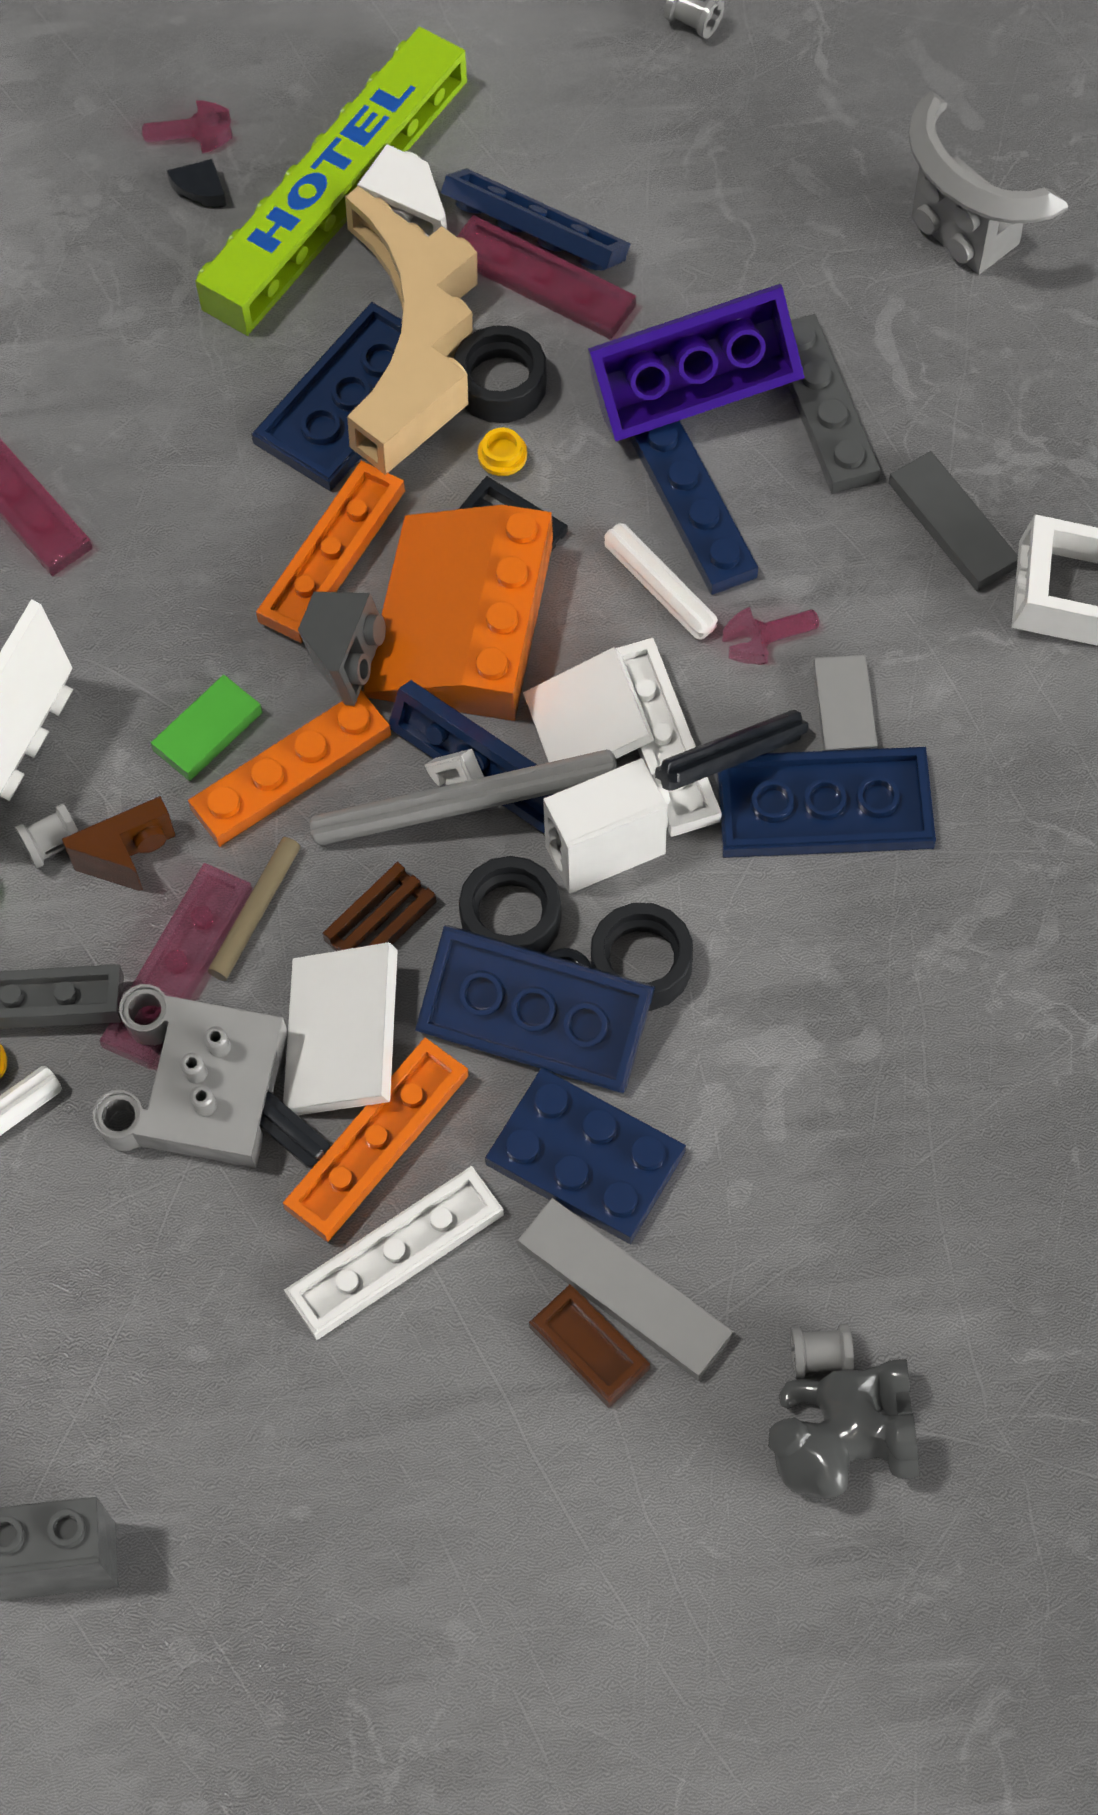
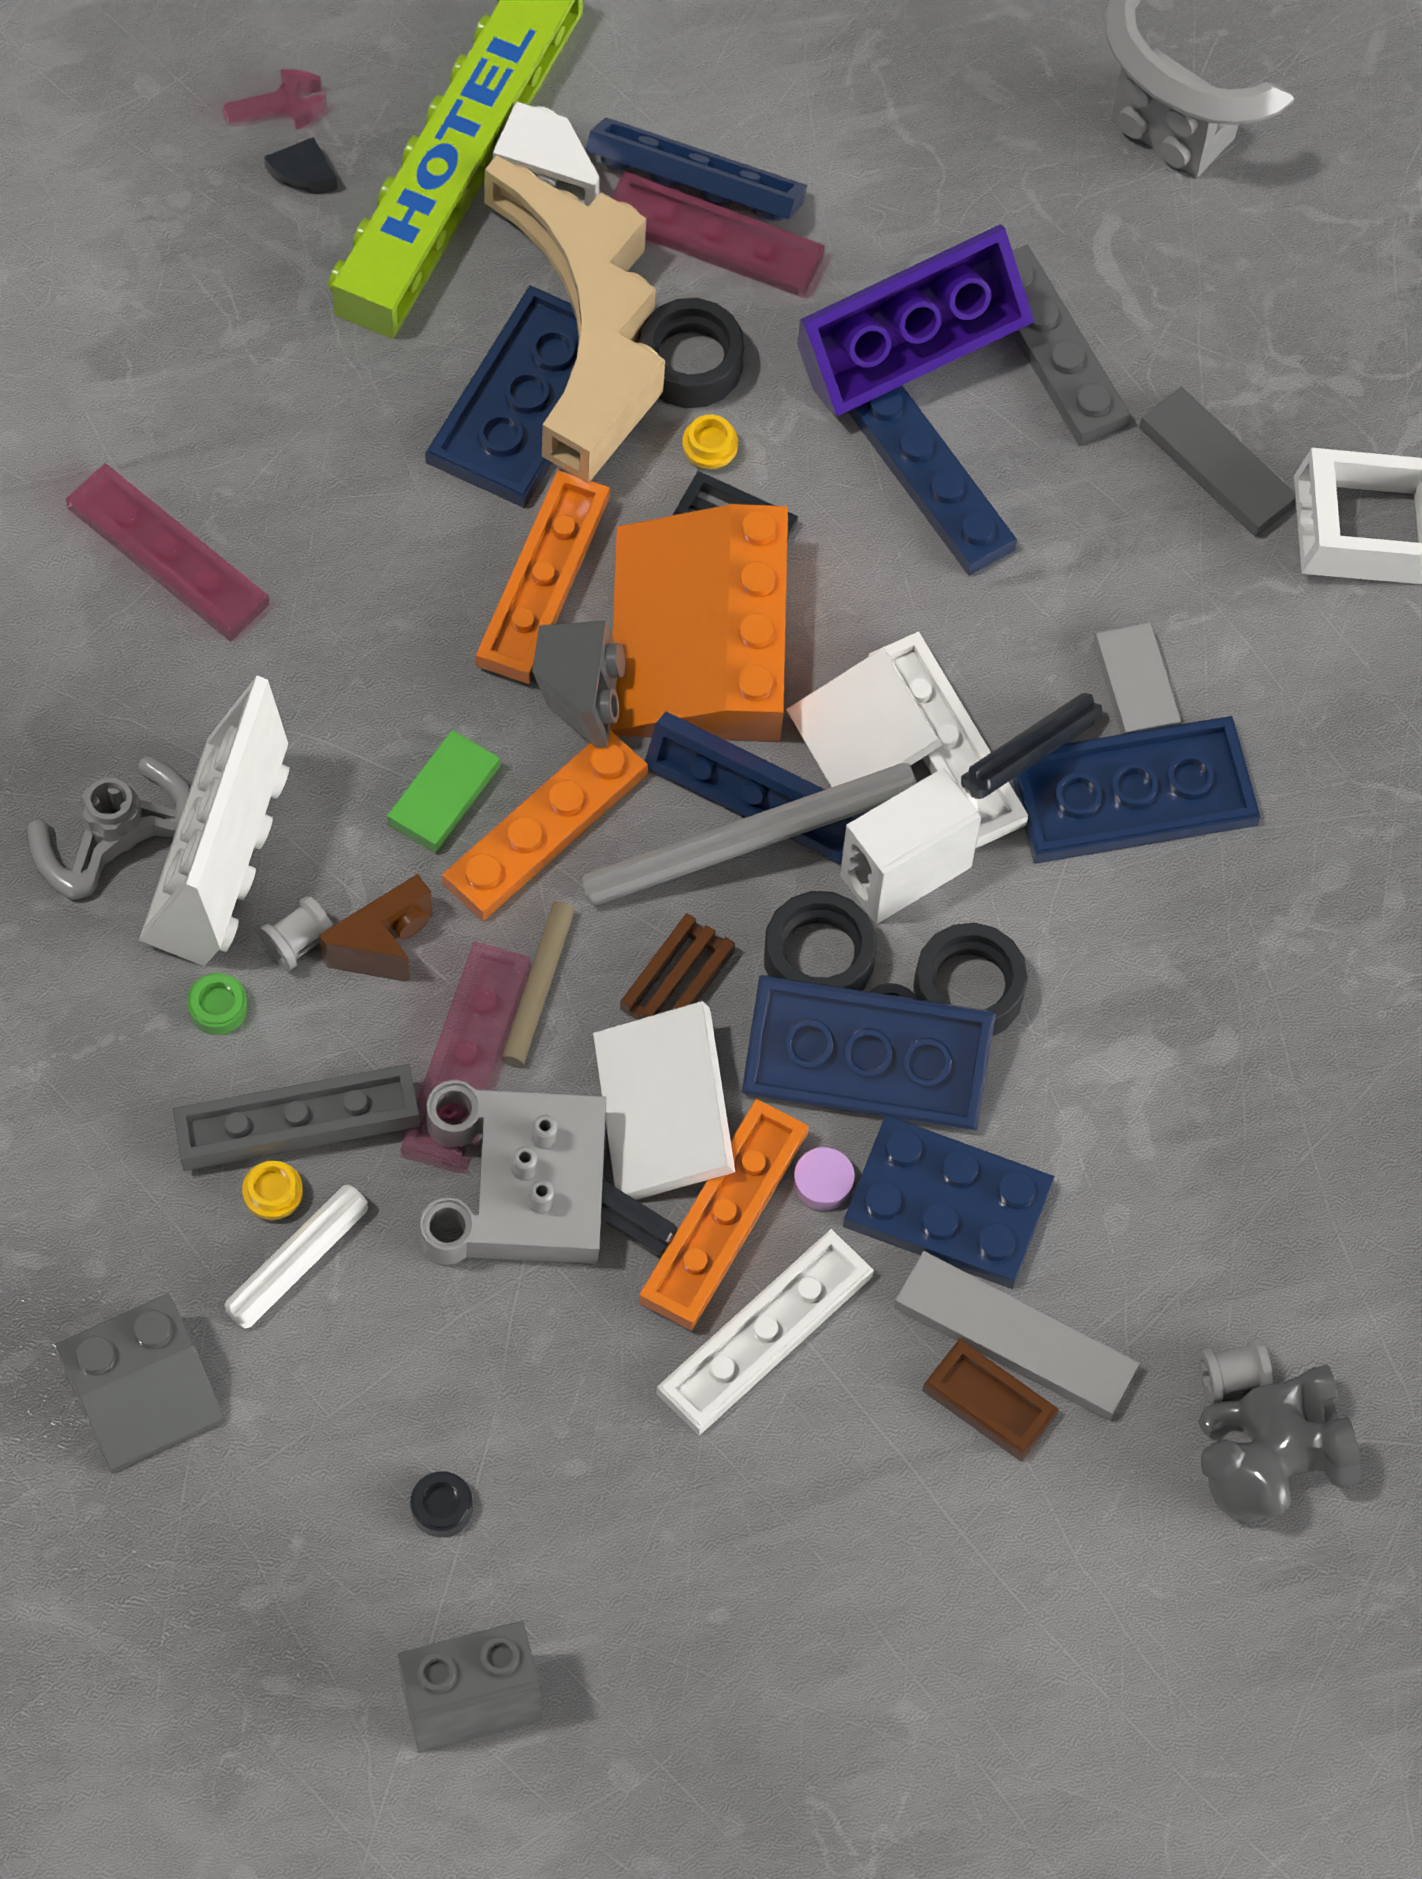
camera: 15 degrees left, 0 degrees up
(68, 1370) = (441, 1504): none -> black tile
(454, 768) = (729, 803): white tile -> none
(475, 1118) = (823, 1178): none -> lavender tile
(660, 581) = (912, 567): white axle -> none
(763, 633) = (1036, 611): clear pink bar -> none

